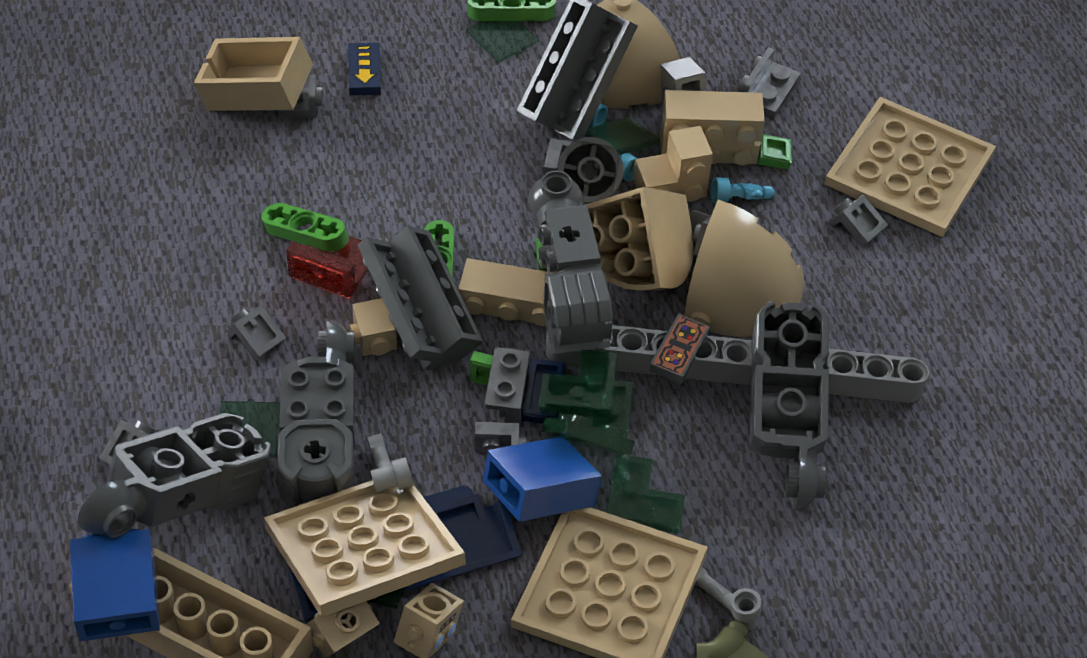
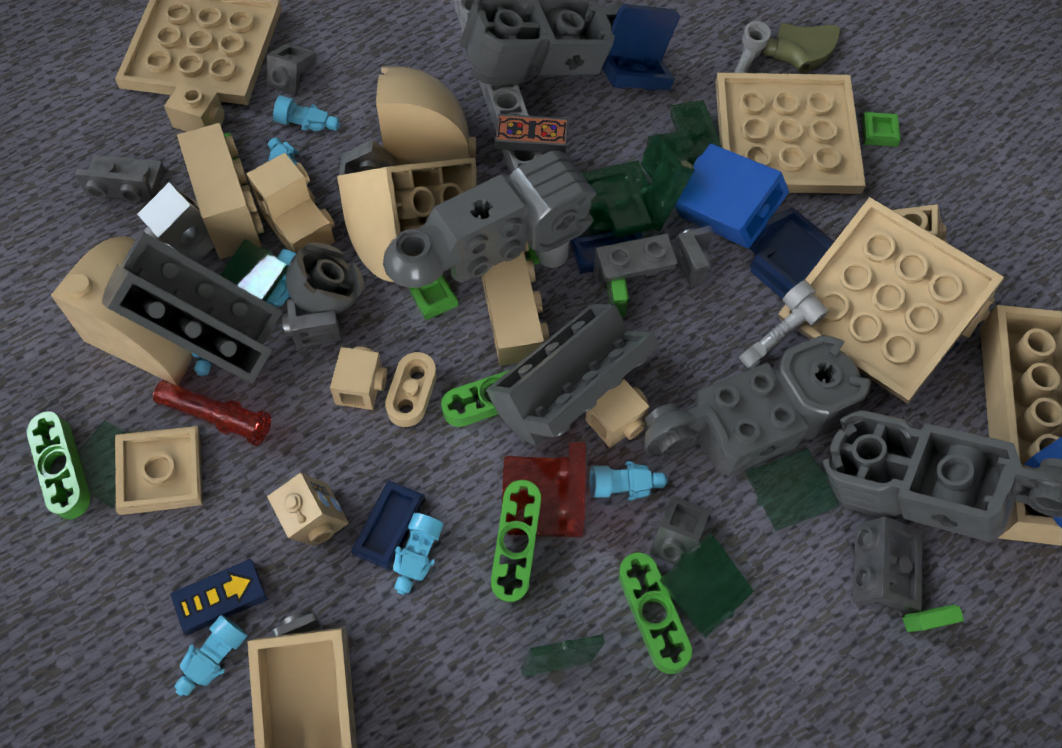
camera: 110 degrees left, 10 degrees up
(86, 459) = (933, 618): none -> bright green tile
(197, 286) = (655, 646): none -> bright green beam
(202, 214) = (561, 655): none -> clear green piece
(202, 326) = (707, 585): none -> clear green piece
(323, 301) = (634, 480): none -> medium azure piece
(329, 171) = (413, 560): none -> medium azure piece
(331, 61) = (203, 664): none -> medium azure piece
(365, 169) = (387, 524): none -> dark blue tile
(393, 115) = (307, 510): none -> tan head
(471, 209) = (410, 391): none -> tan plate
(479, 56) = (158, 470): none -> tan tile
(494, 177) = (358, 378): none -> tan brick
(501, 98) = (226, 416): none -> clear red pin
(751, 479) = (639, 47): none -> dark blue bracket
(800, 206) = (310, 118): none -> medium azure piece
(823, 141) = (193, 107): none -> tan brick

